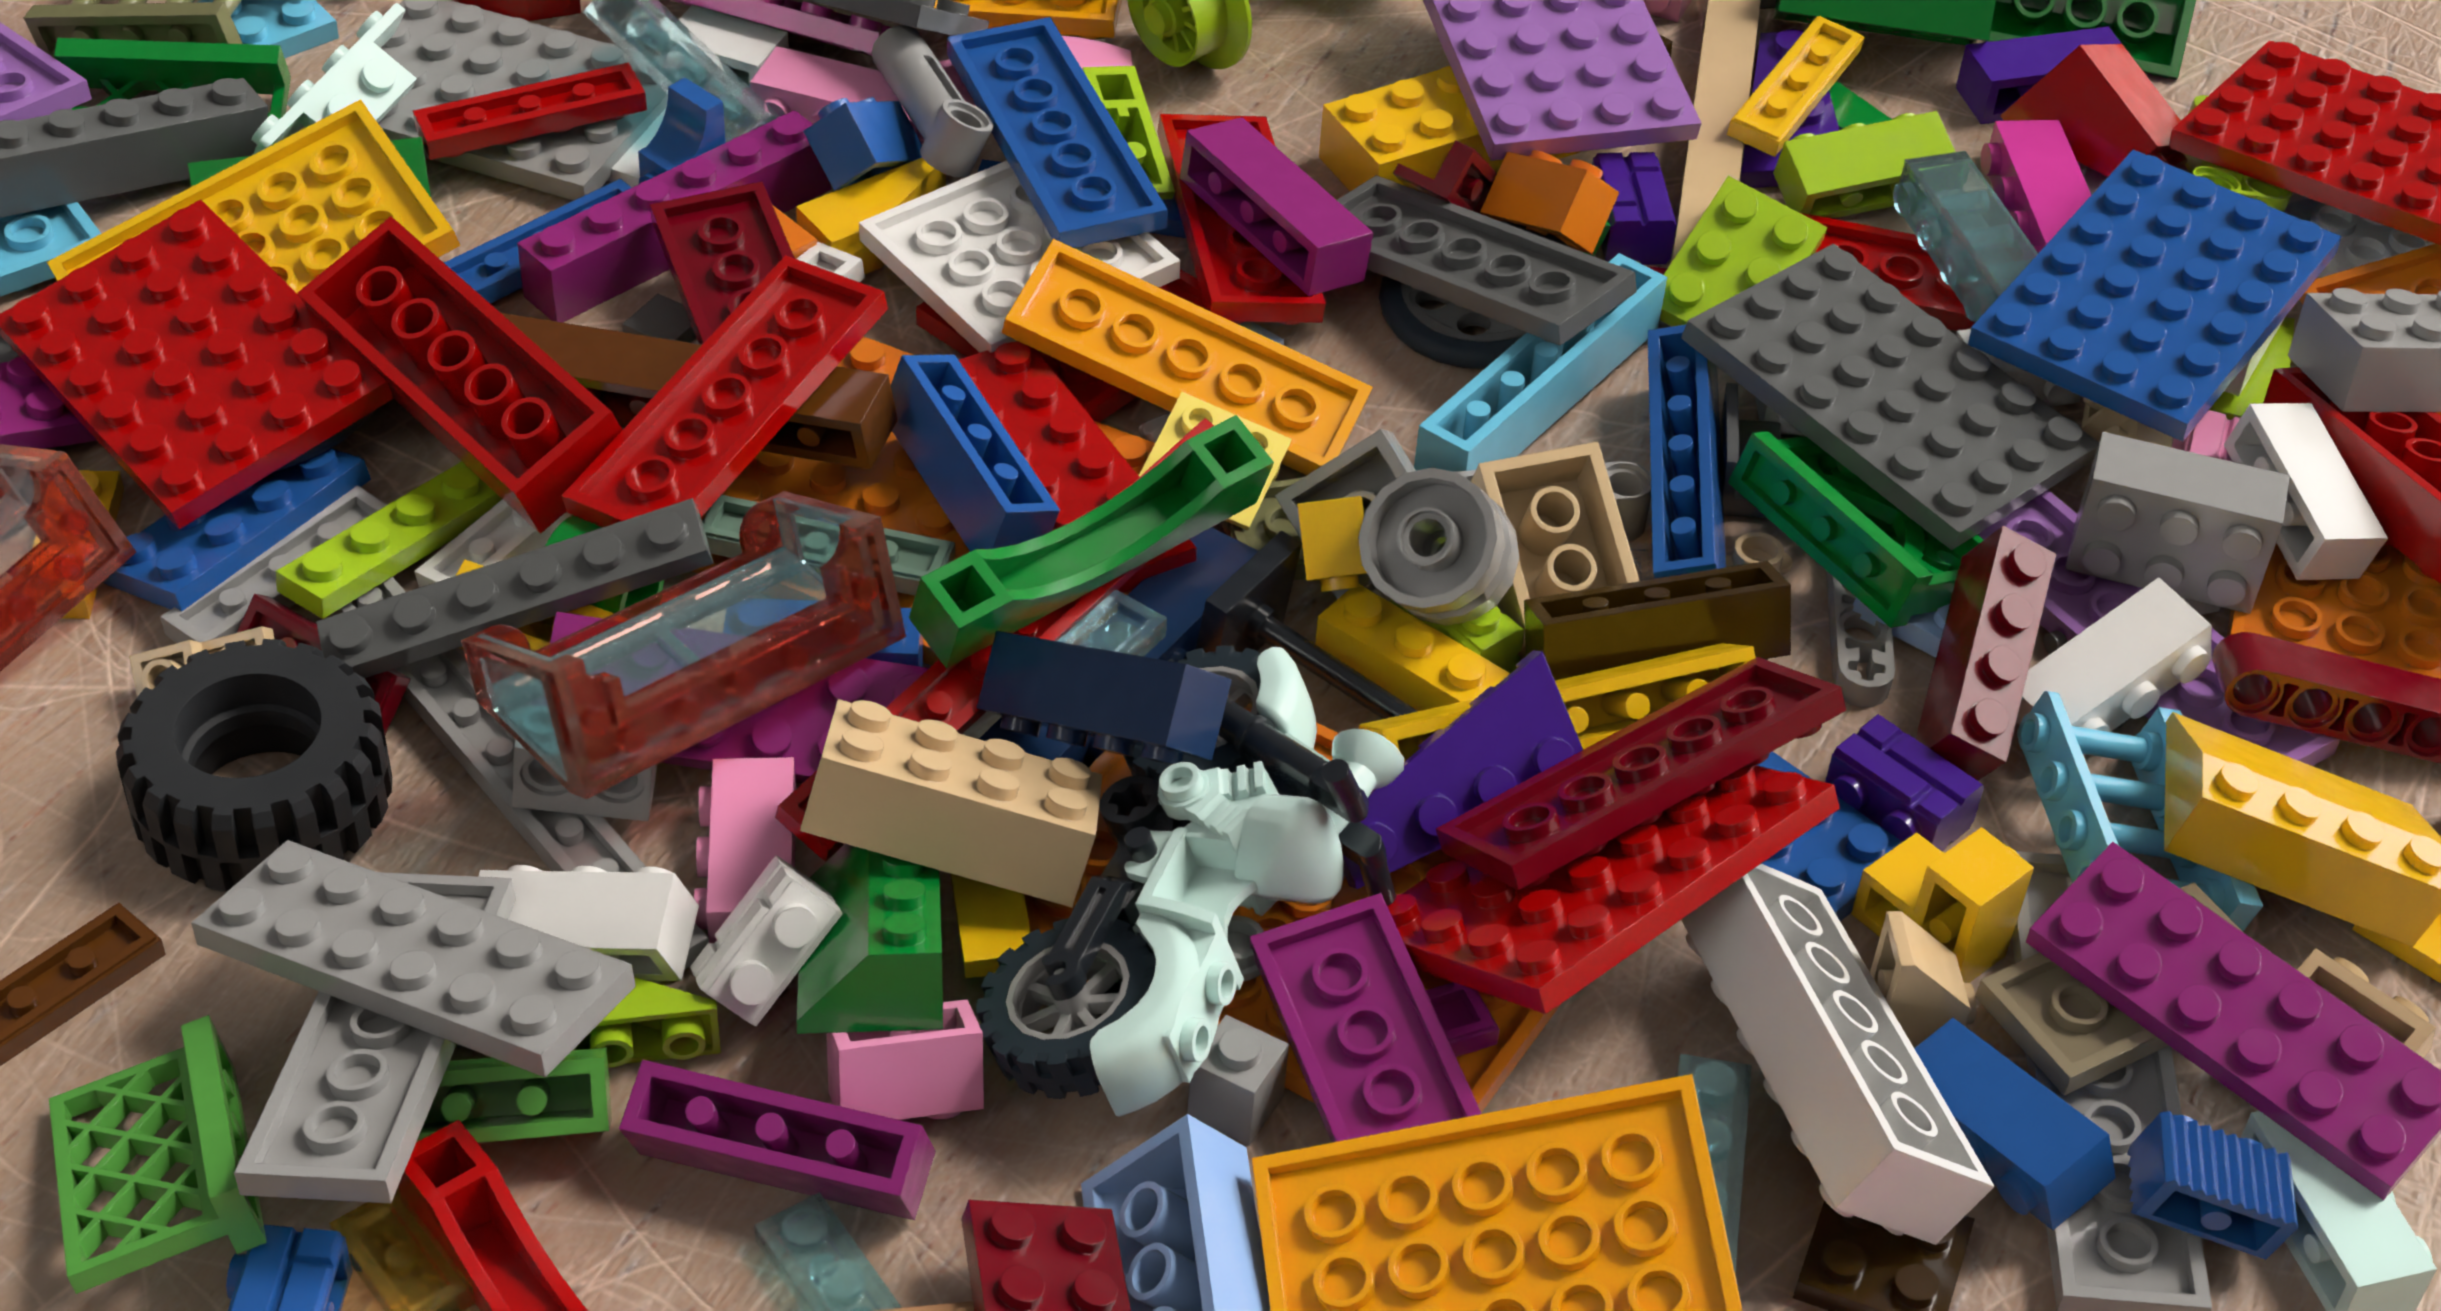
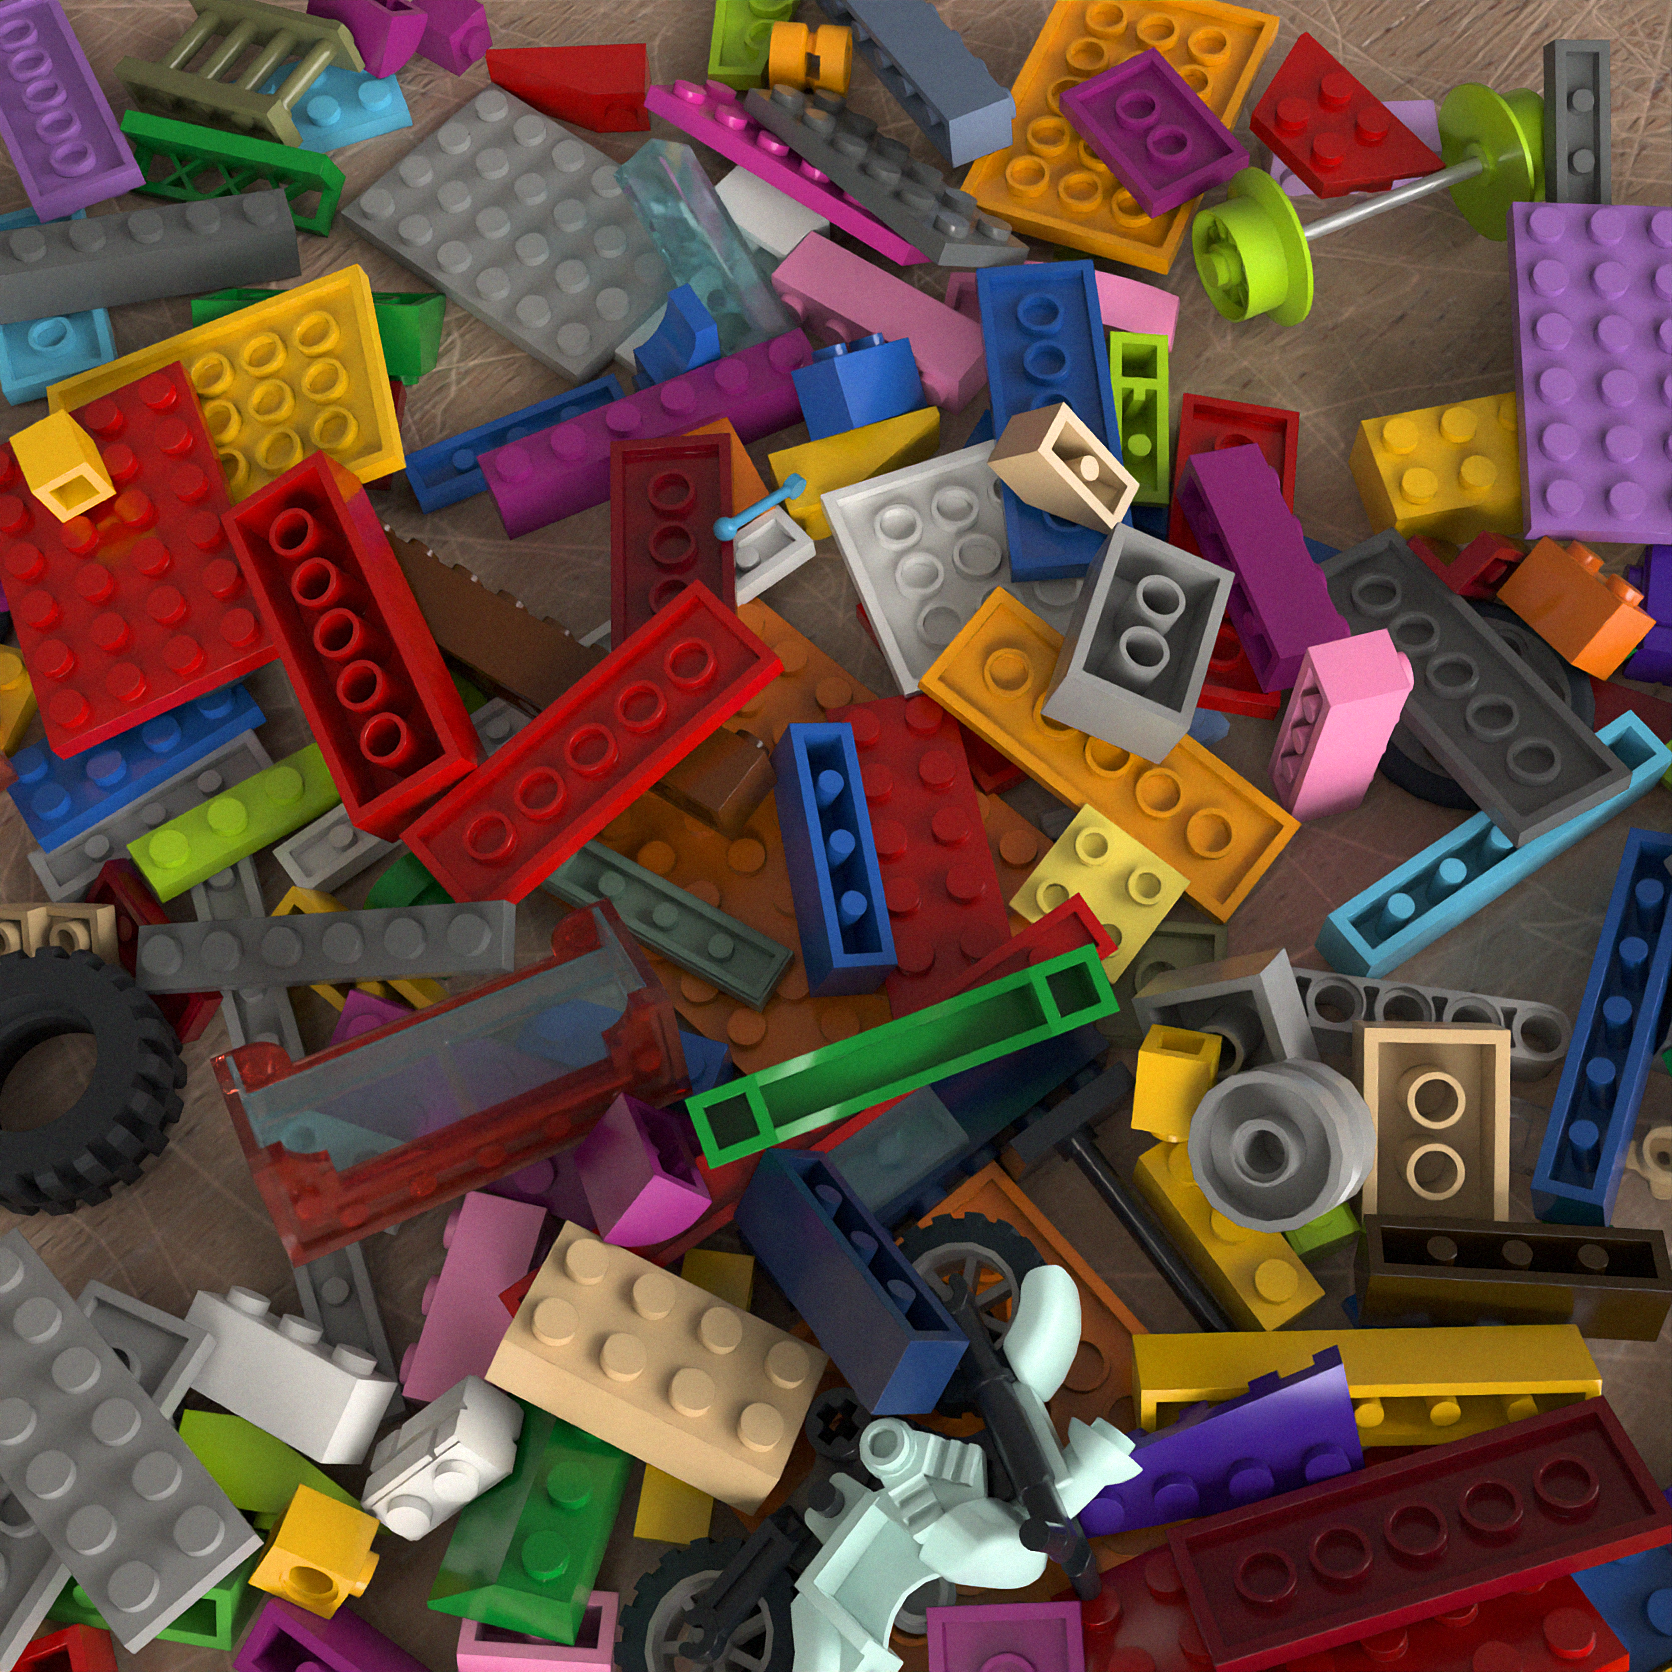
camera: 25 degrees right, 20 degrees up
(120, 281) = (62, 465): none -> yellow brick
(350, 75) = (379, 225): light aqua bracket -> none
(529, 111) = (541, 278): red plate -> none
(661, 319) = (592, 570): dark grey tile -> none
(664, 995) = (317, 1553): none -> yellow brick
(786, 244) = (726, 528): none -> dark azure hinge
(887, 669) = (640, 1175): none -> magenta brick
(950, 126) = (946, 384): light grey piece -> none
(1081, 146) = (1063, 468): none -> tan slope
(1192, 253) = (1138, 644): none -> light grey brick
(1382, 283) = (1338, 724): none -> bright pink brick

